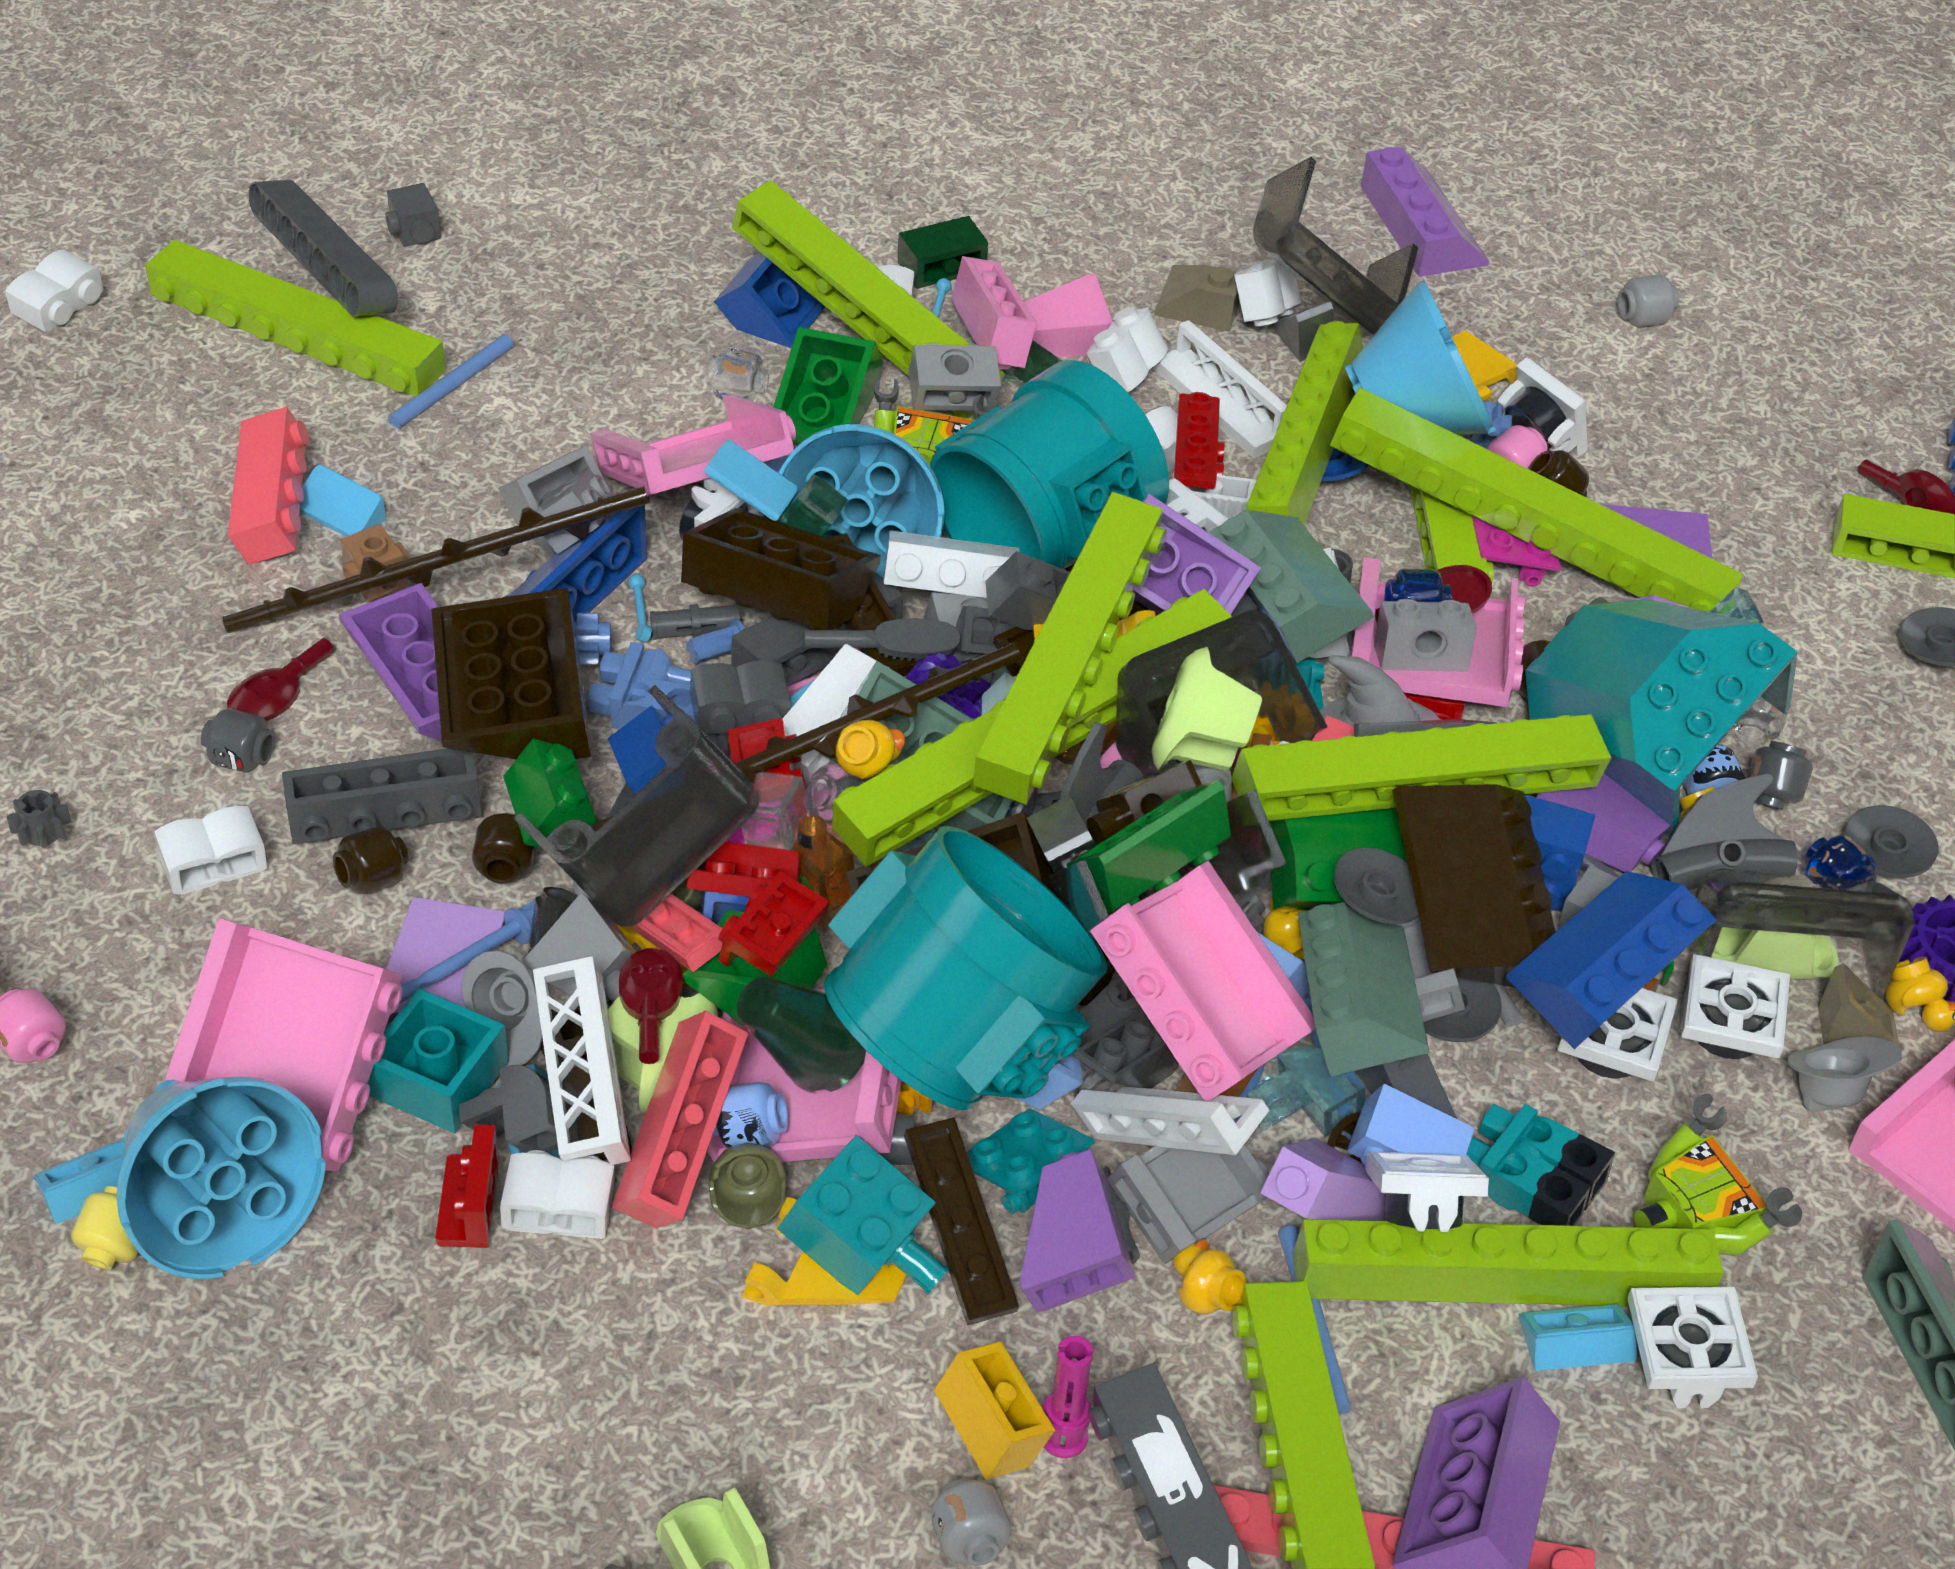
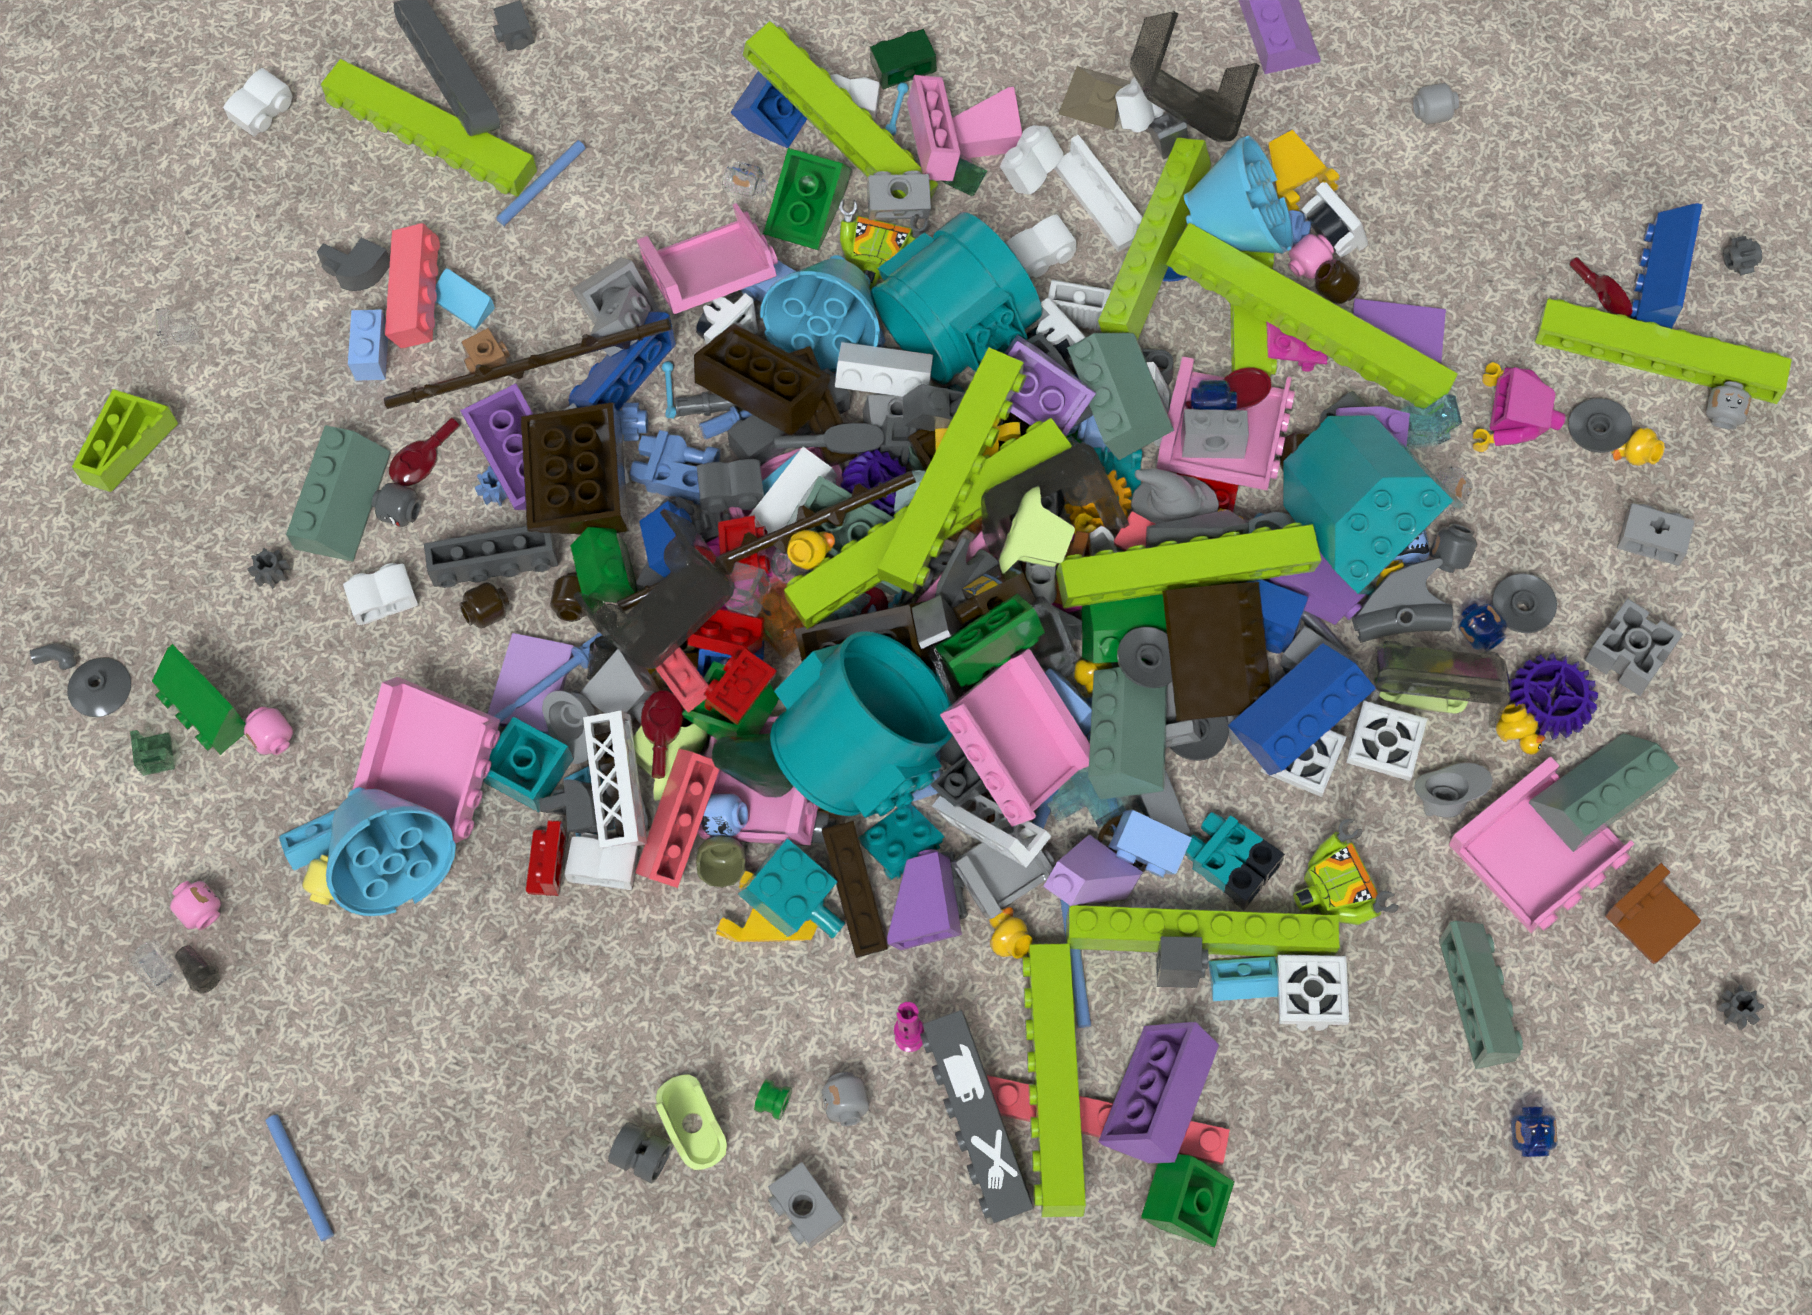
camera: 10 degrees right, 20 degrees up
(148, 728) = (337, 494): none -> sand green slope
(186, 470) = (359, 268): none -> dark grey brick
(202, 552) = (368, 345): none -> light blue brick
(383, 717) = (490, 493): none -> medium blue gear
(751, 480) = (743, 307): medium azure slope -> none
(814, 507) = (786, 329): clear green panel -> none
(851, 1527) = (772, 1099): none -> green wheel
(994, 1410) = (864, 1026): yellow brick -> none
(1197, 445) = (1073, 253): red bracket -> none
(1425, 1188) = (1150, 886): white piece -> none
(1482, 1301) = (1180, 962): none -> dark grey brick
(1832, 613) = (1520, 407): none -> dark pink torso
(1853, 1010) = (1473, 745): dark tan slope -> none

